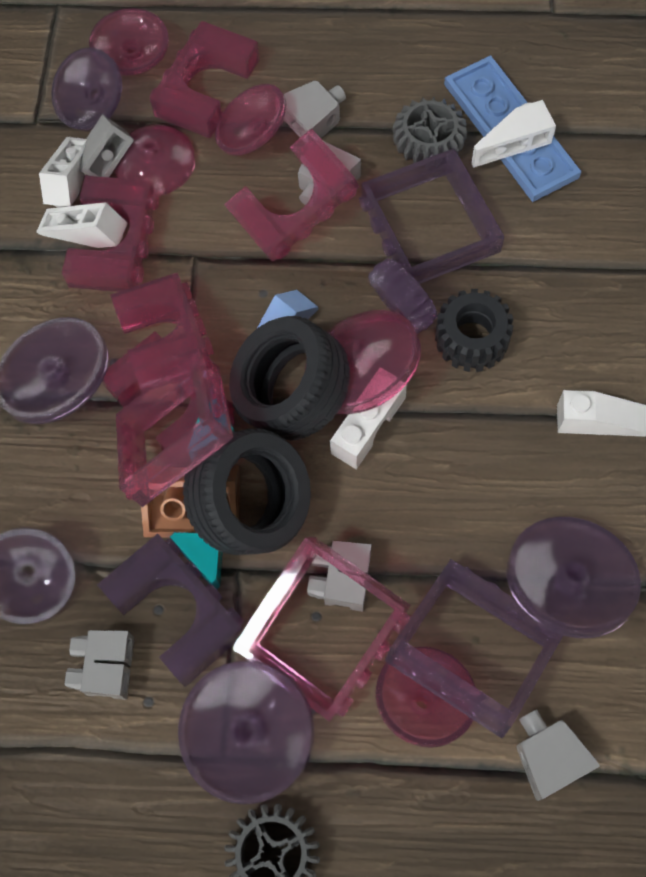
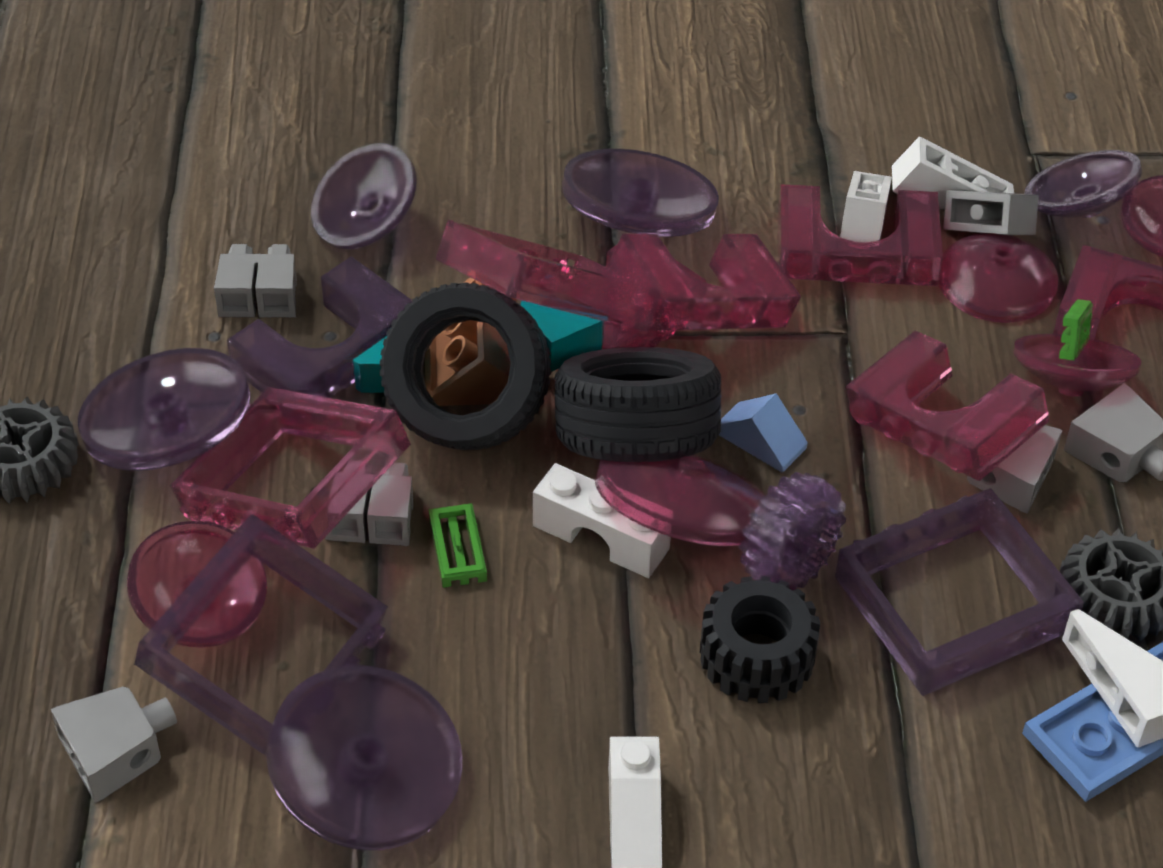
camera: 80 degrees right, 20 degrees down
(236, 111) = (1078, 329): none -> bright green tile
(378, 529) = (462, 571): none -> bright green tile

